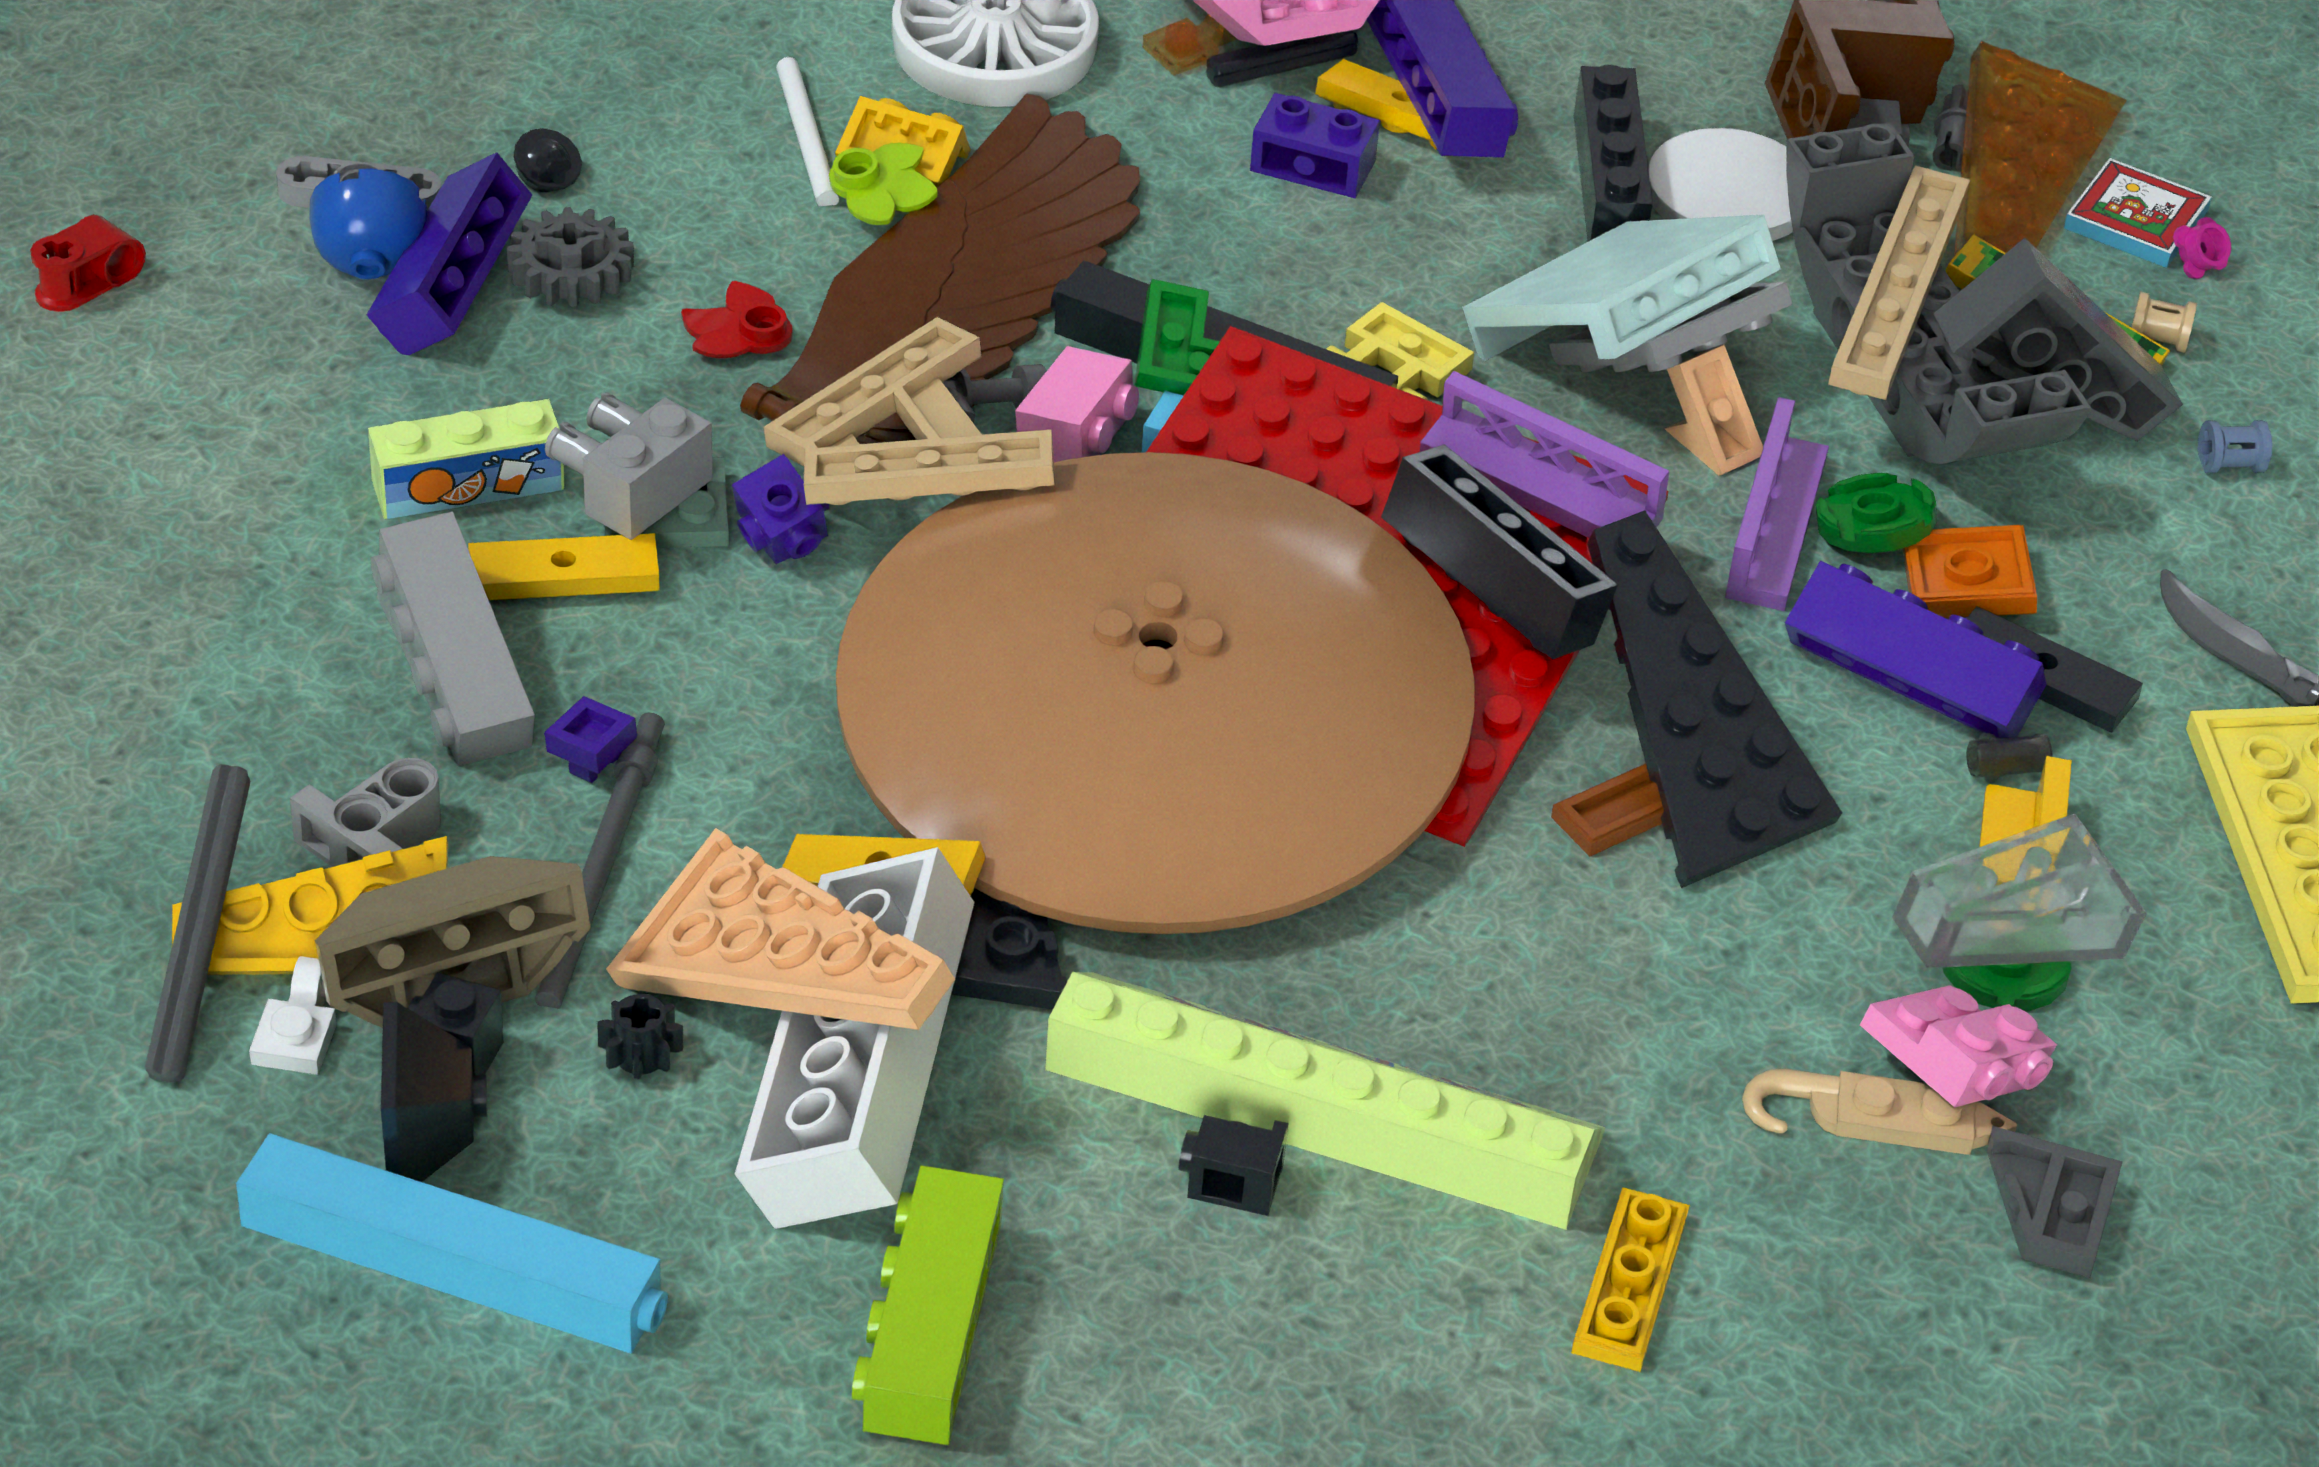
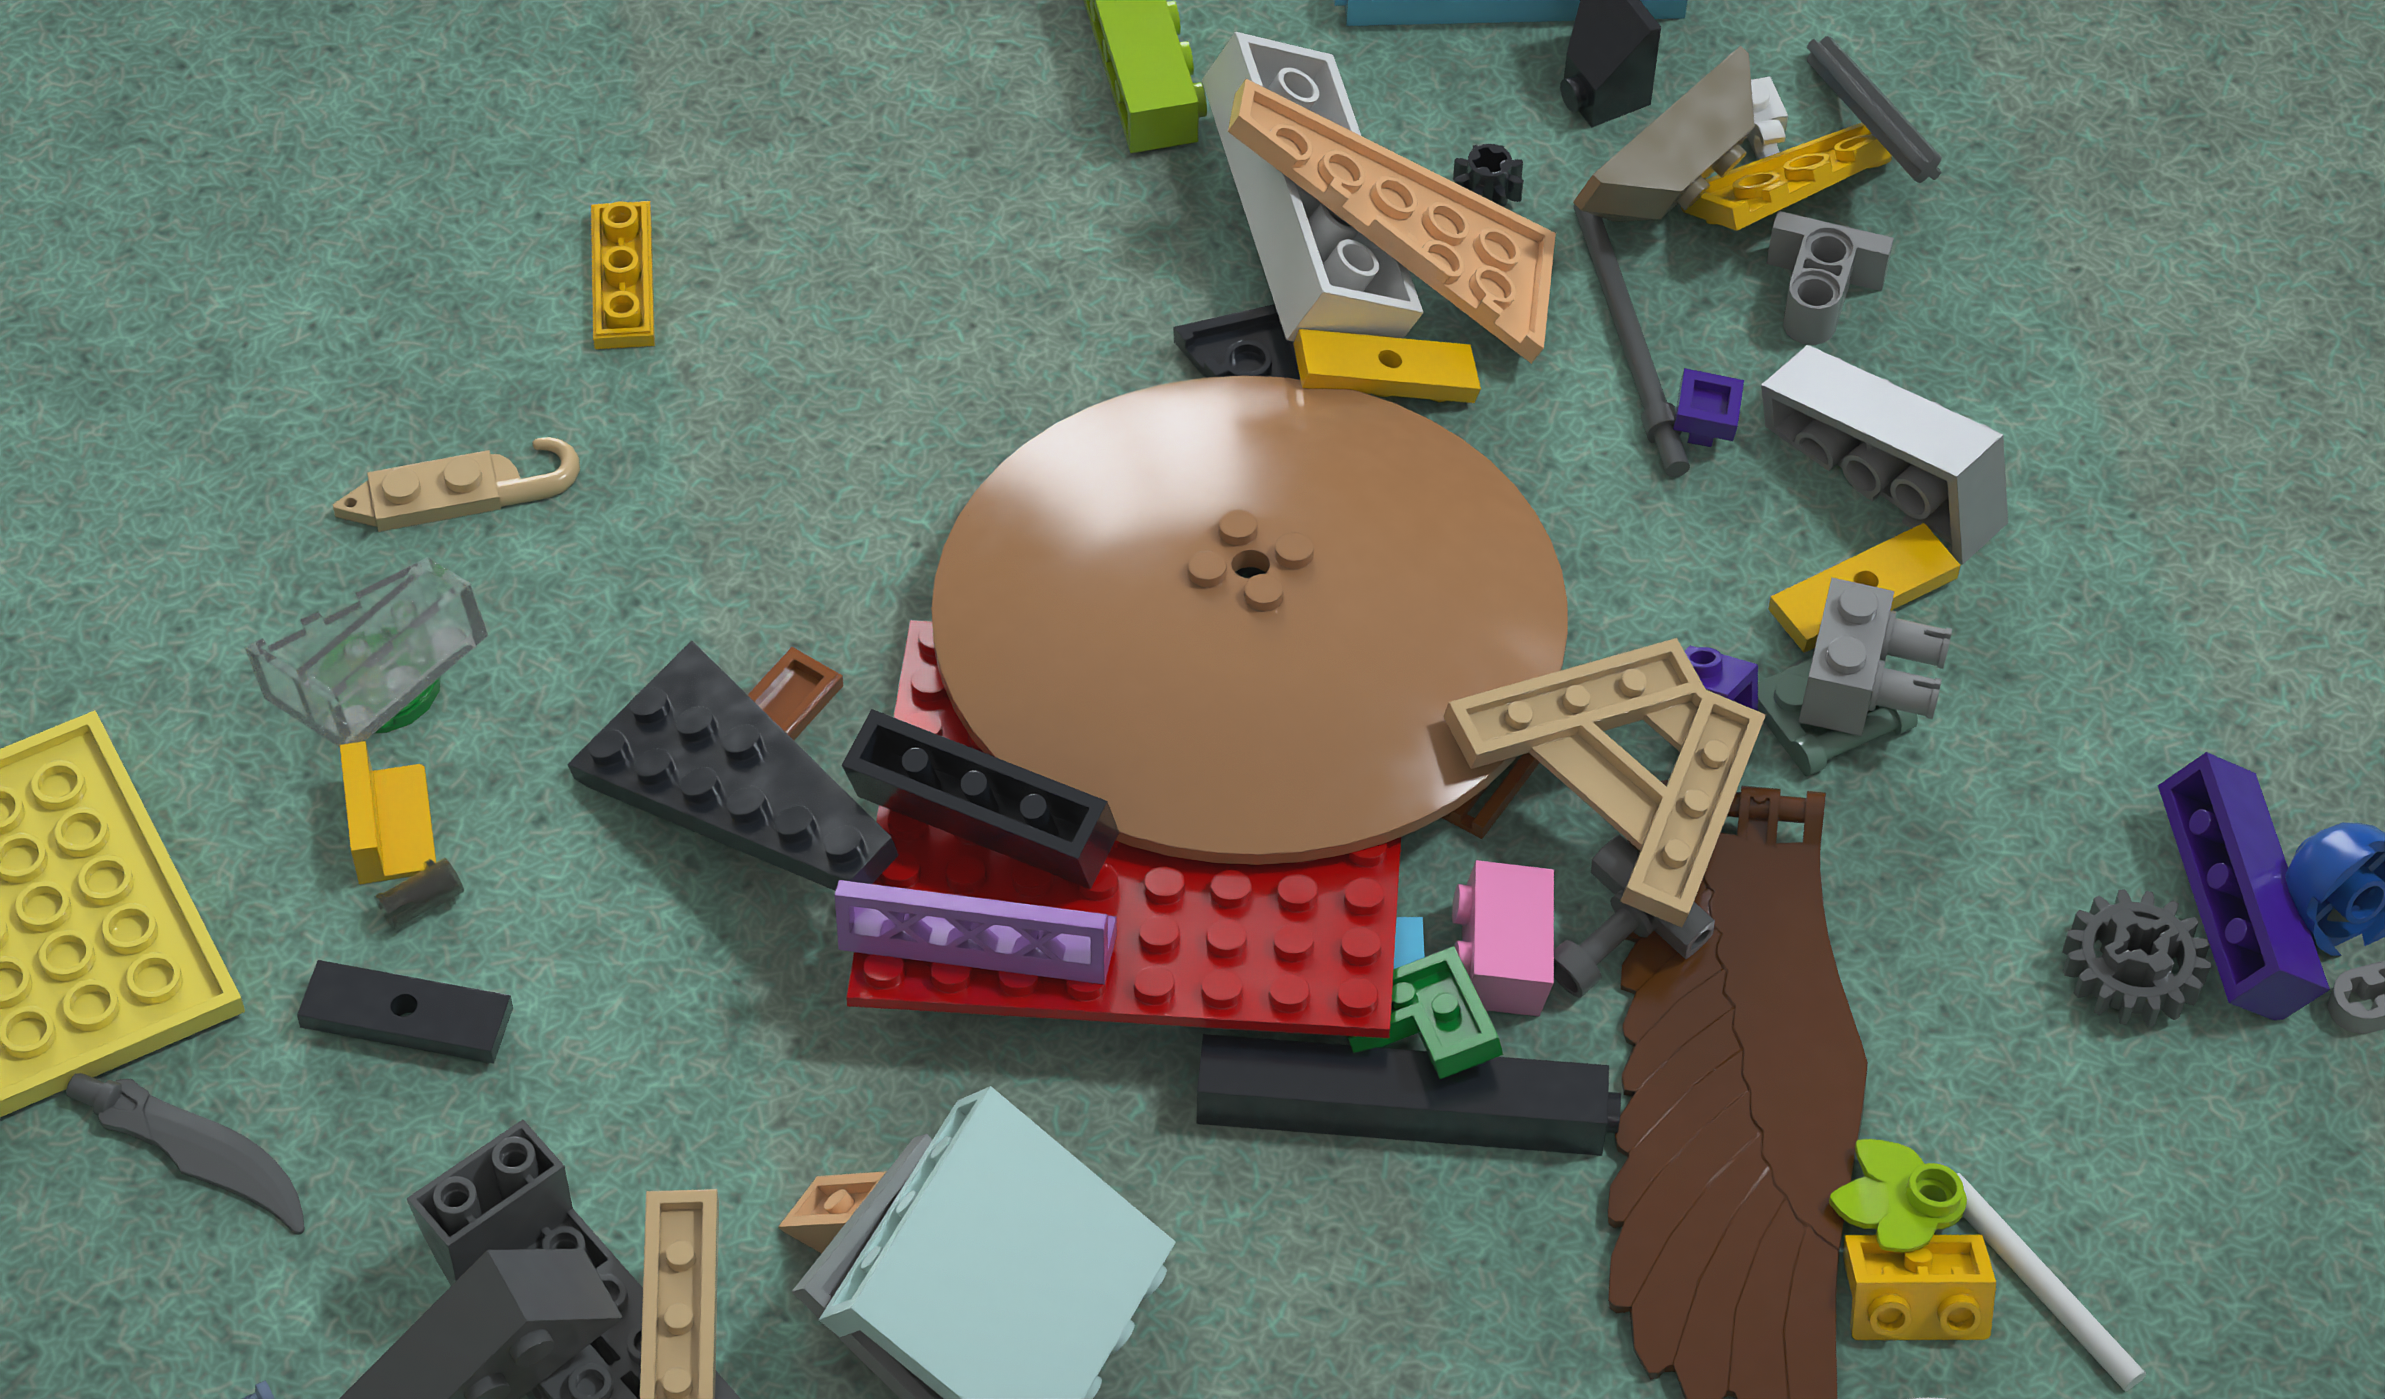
camera: 160 degrees right, 10 degrees up
(464, 459) = (2032, 653): brick -> none
(466, 1012) = (1621, 114): black brick -> none
(547, 160) = (2264, 1088): black hat -> none
(744, 325) = (1927, 958): red plate -> none
(1234, 1163) = (970, 234): black brick -> none
(1328, 1095) = (927, 323): yellowish green slope -> none
(1406, 349) = (1217, 1195): light yellow plate -> none
(1776, 515) = (737, 1118): medium lavender fence -> none
(1876, 513) = (625, 1148): green tile -> none
(1916, 651) = (539, 950): dark purple brick -> none
(1958, 1047) = (391, 523): bright pink plate -> none
(1972, 568) = (500, 1087): orange plate -> none
(2053, 1198) = (285, 445): dark grey wing -> none

